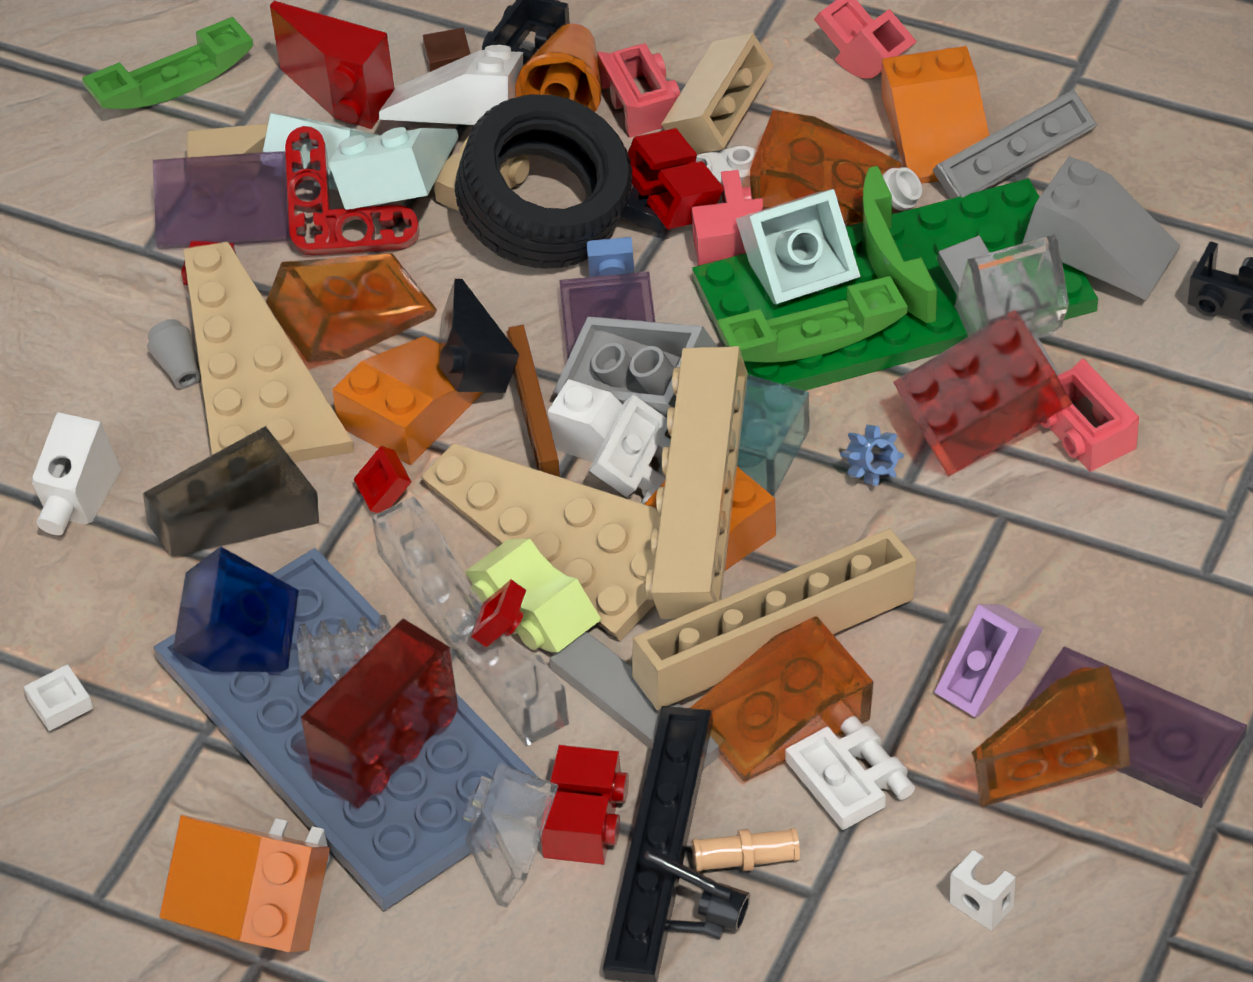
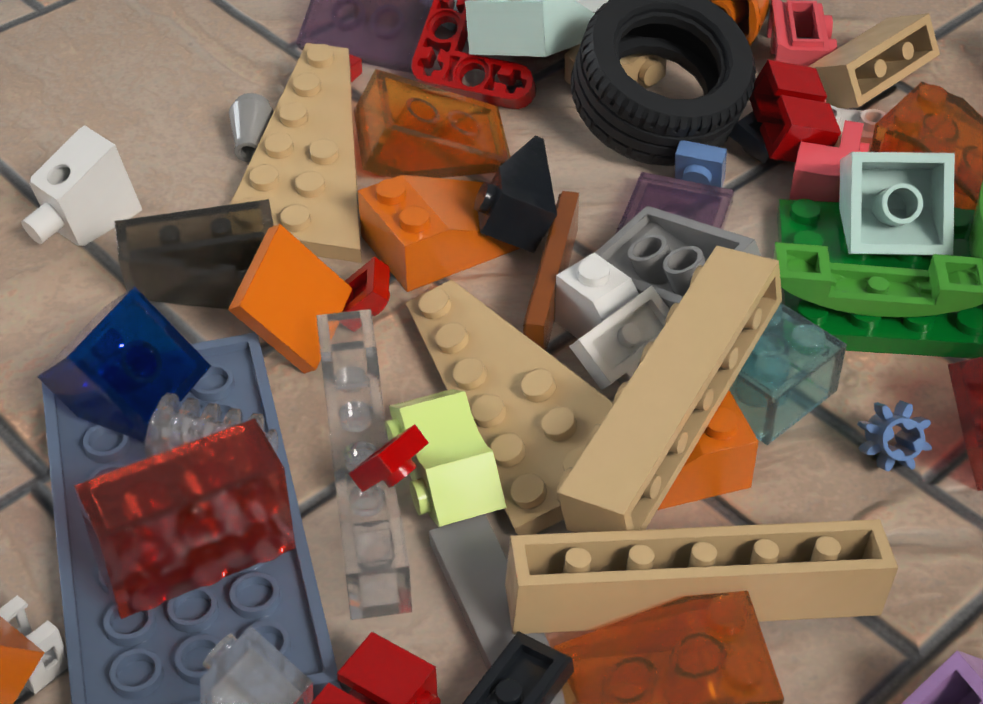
camera: 20 degrees right, 5 degrees down
(334, 508) = (284, 295): none -> orange tile

